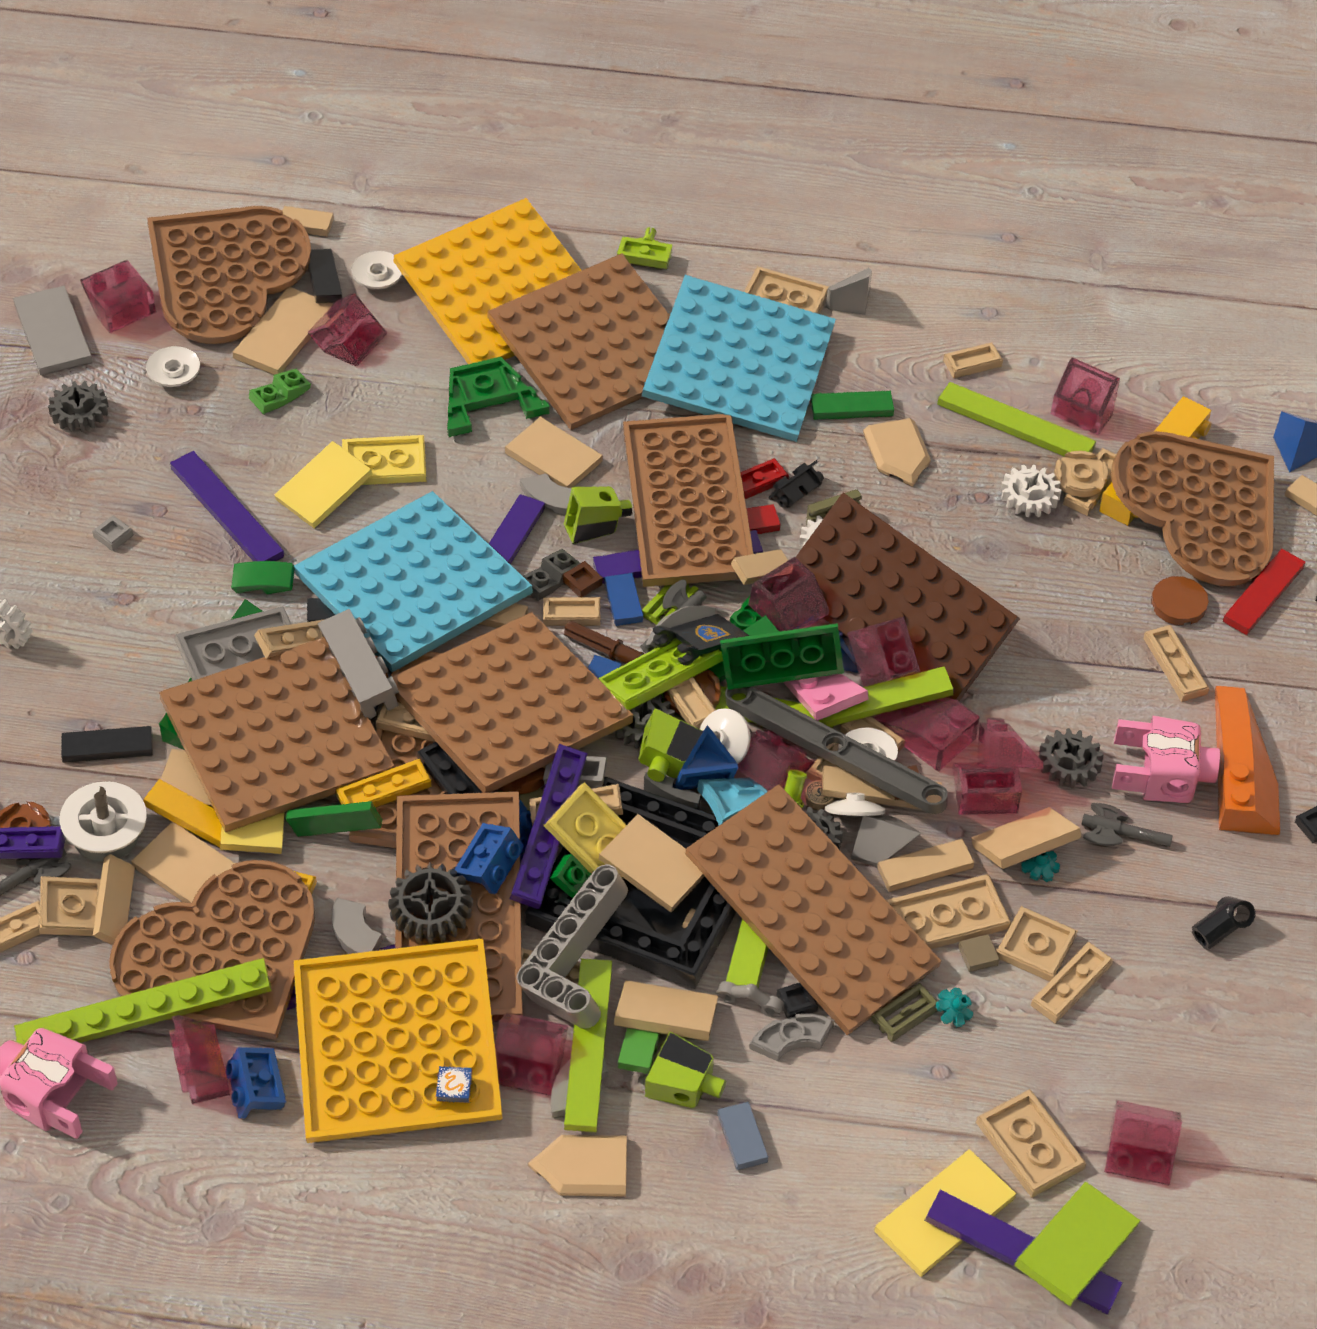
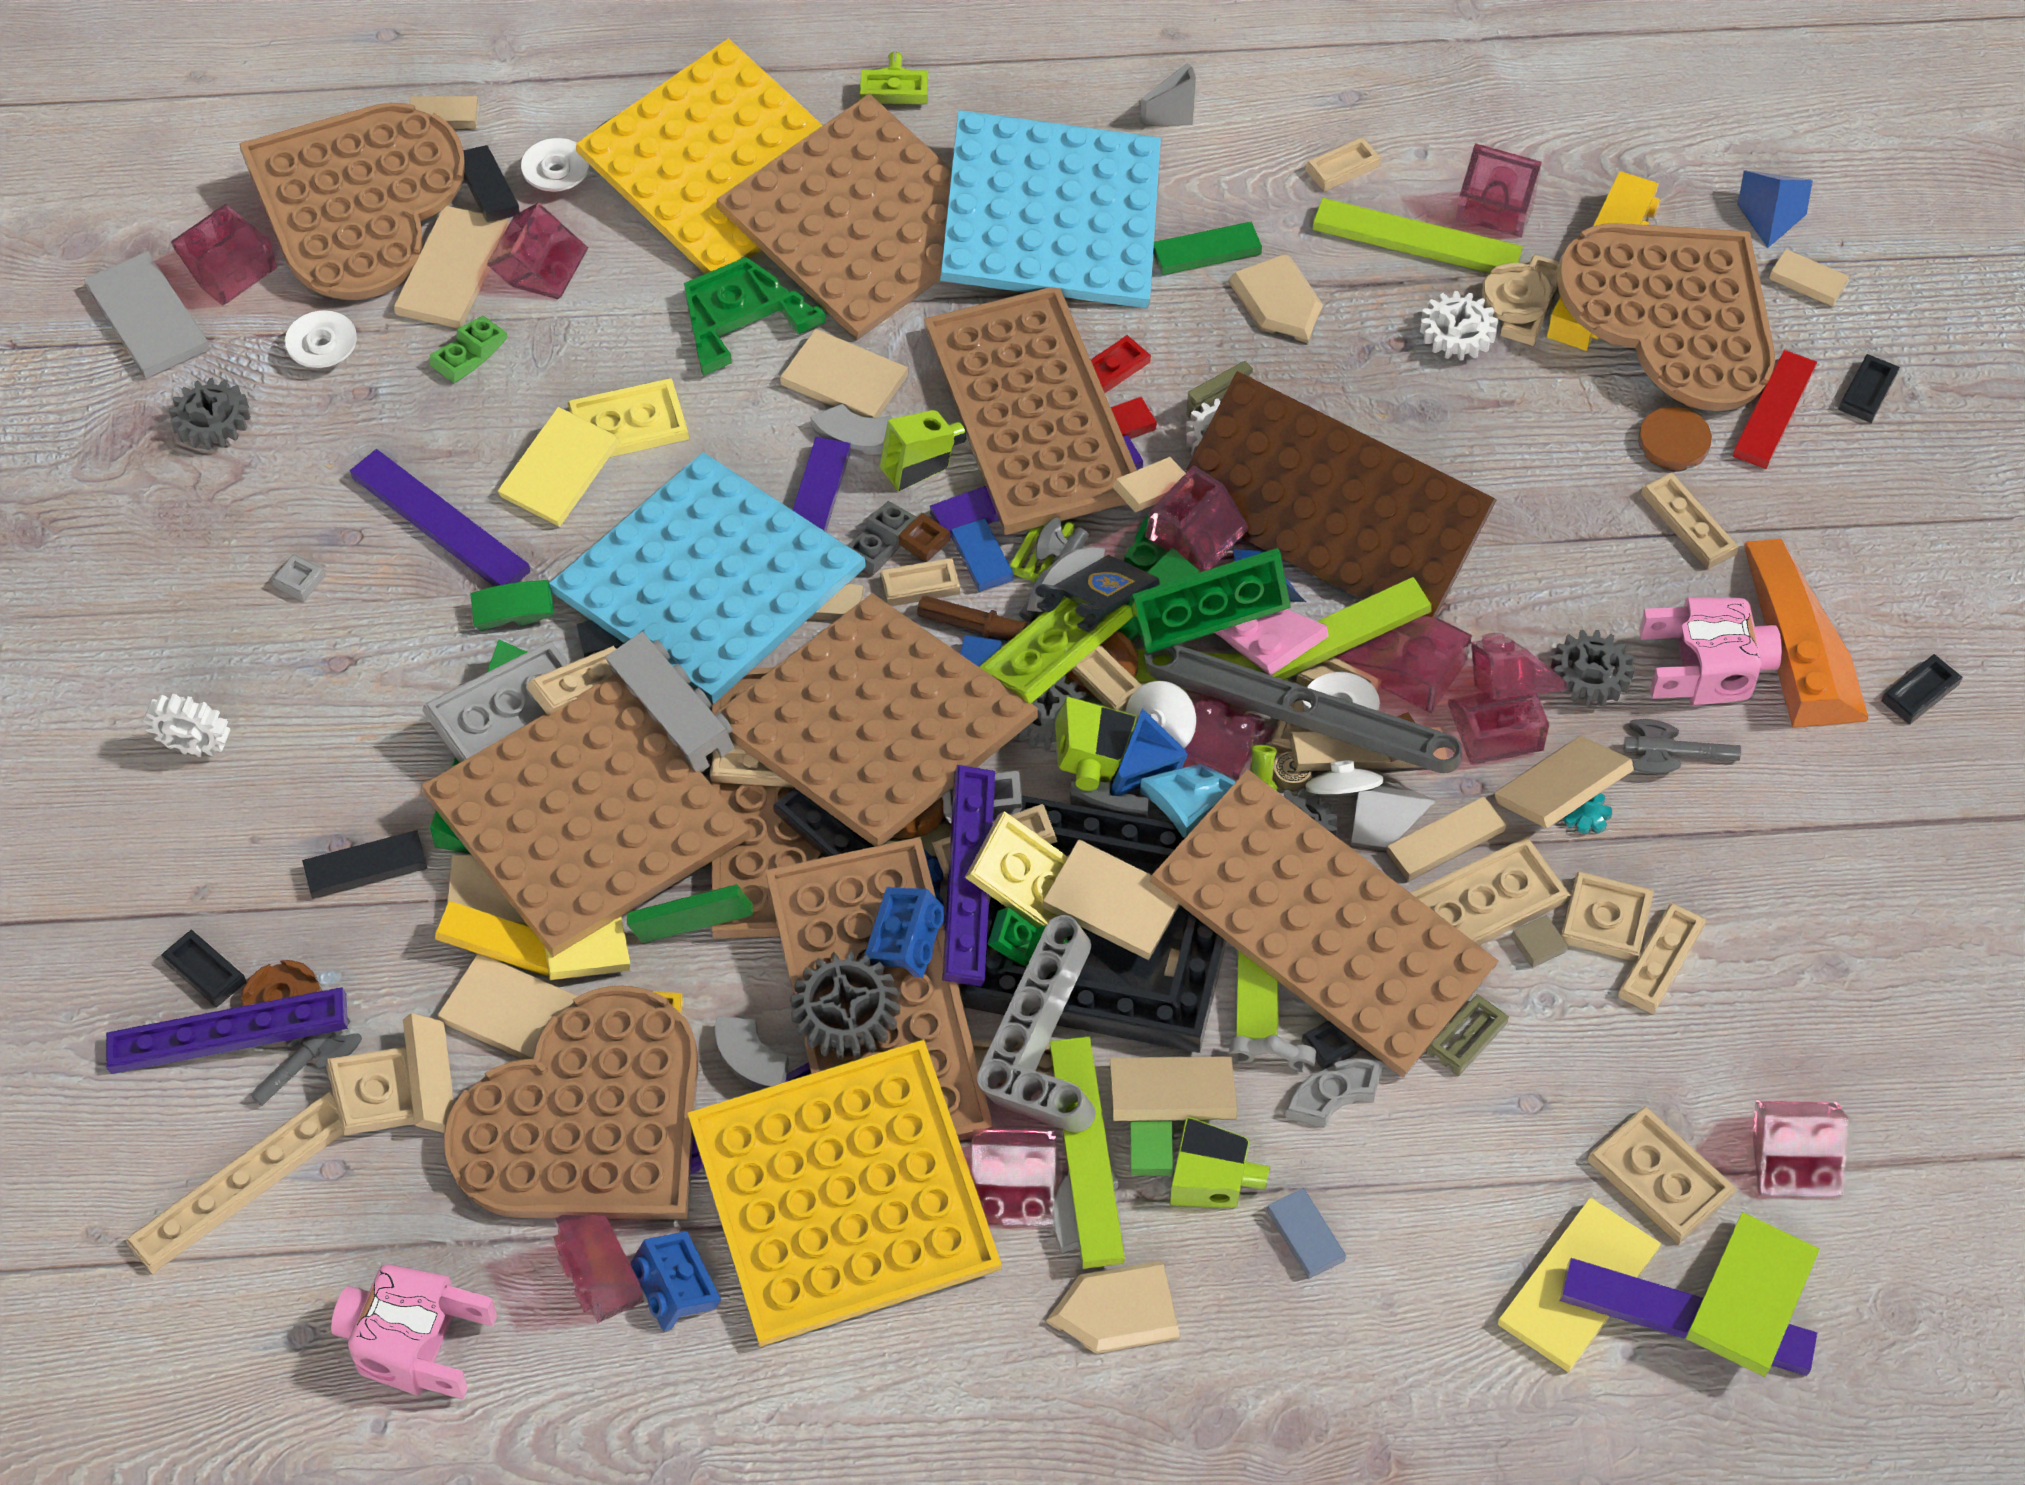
camera: 10 degrees left, 5 degrees up
(103, 819) = (390, 968): white piece -> none
(154, 1004) = (515, 1205): lime plate -> none
(387, 785) = (744, 857): yellow tile -> none
(454, 1084) = (933, 1237): tile -> none
(787, 290) = (1088, 108): tan tile -> none
(804, 477) = (1173, 355): black hinge -> none
(883, 652) = (1332, 572): clear pink slope -> none
(954, 1006) = (1527, 1016): teal plant -> none
(1222, 921) = (1833, 839): black piece -> none

